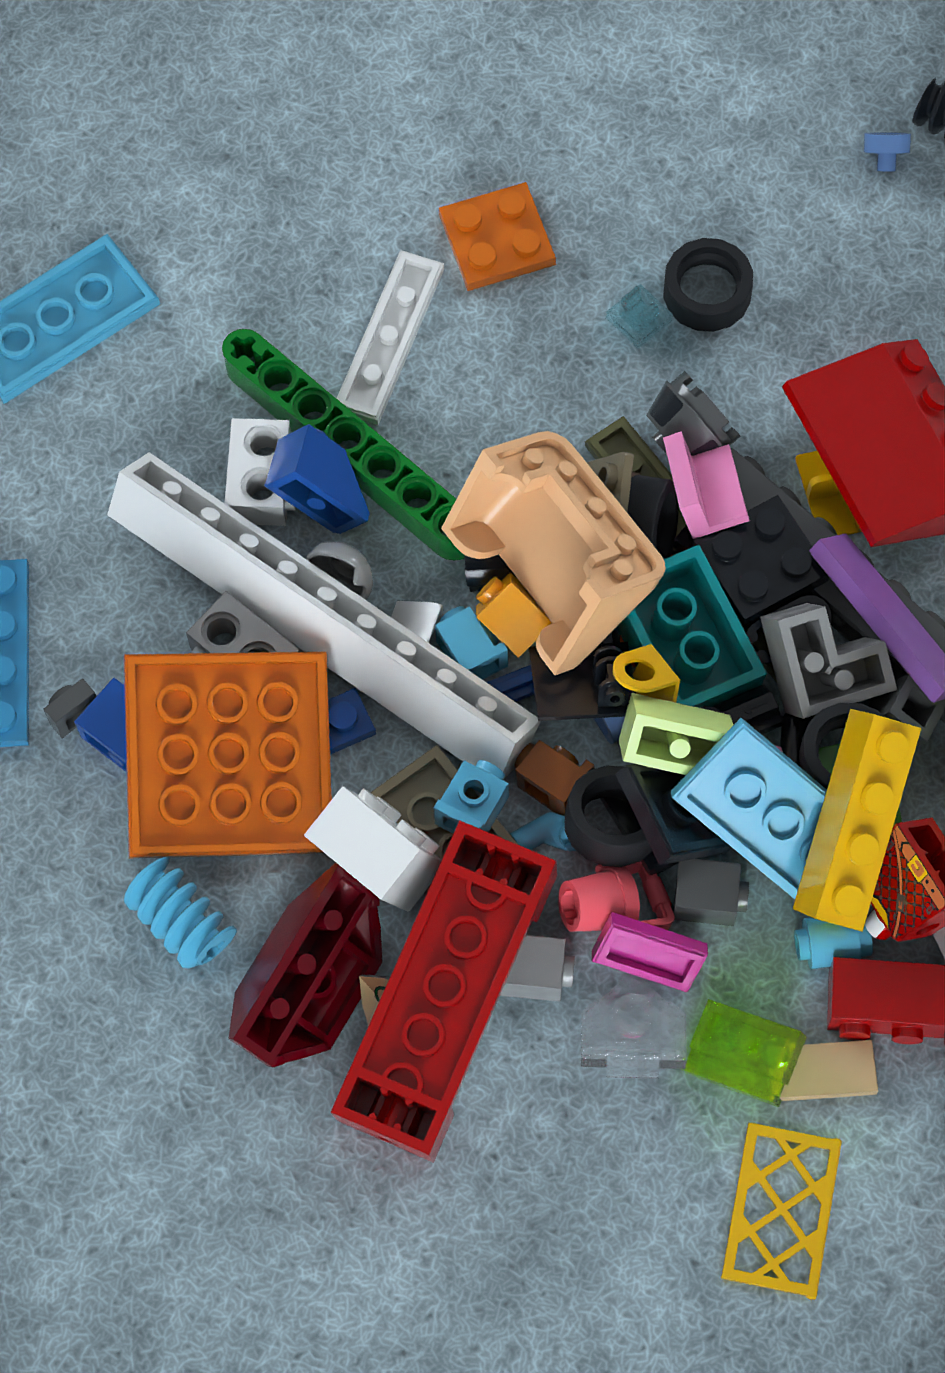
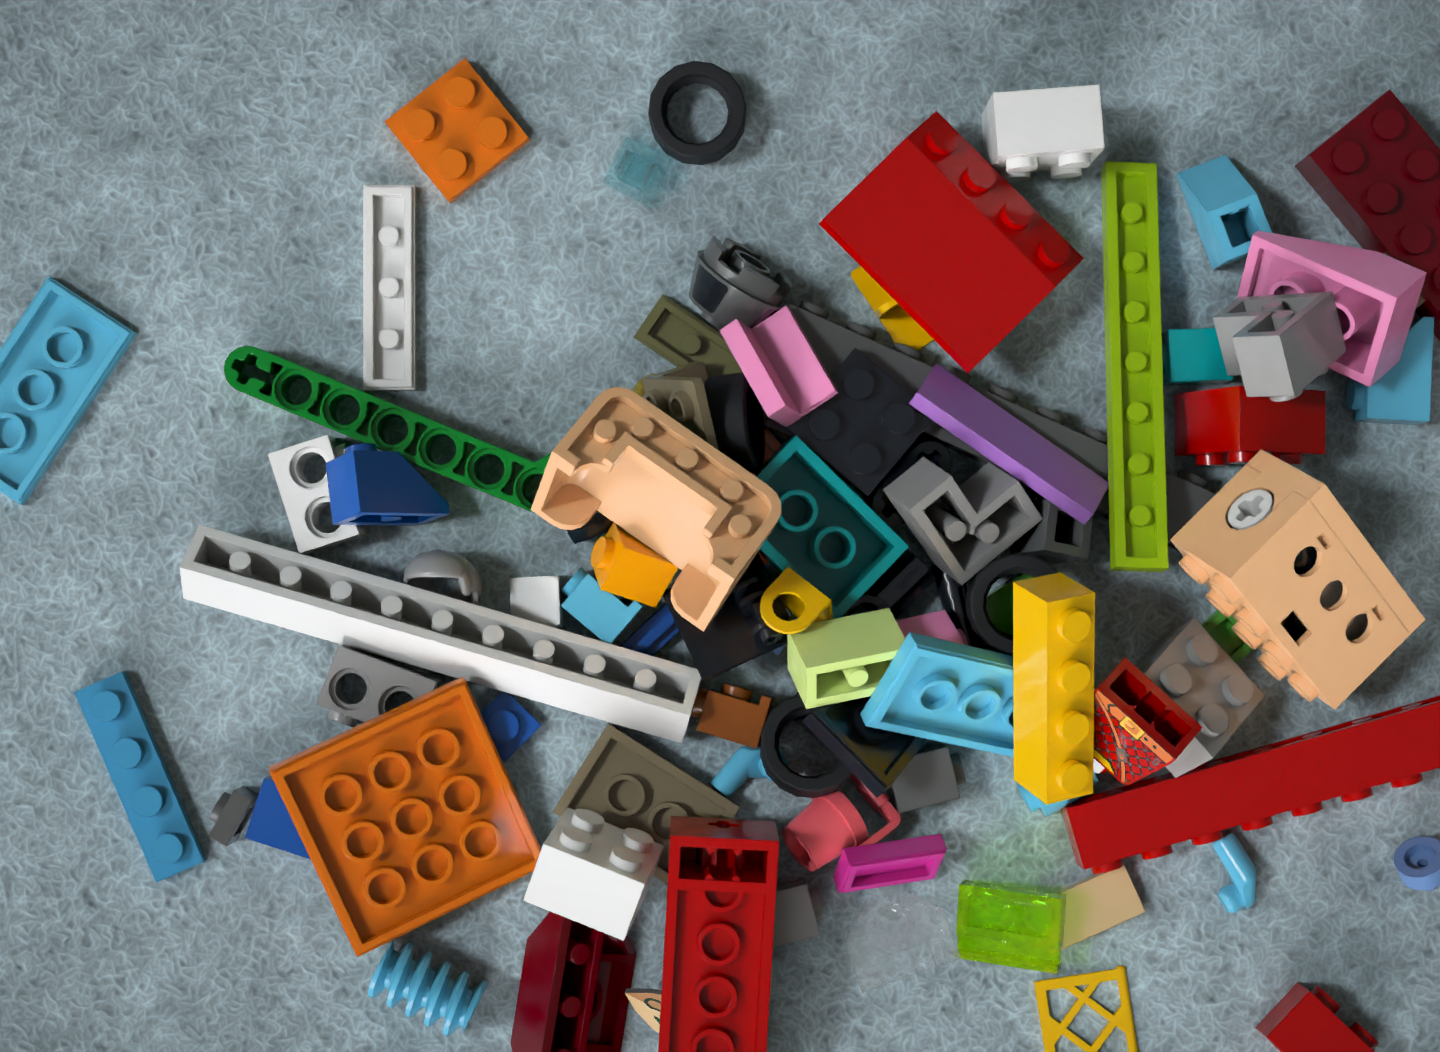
camera: 20 degrees left, 20 degrees up
(477, 812) = (662, 800): medium azure brick -> none

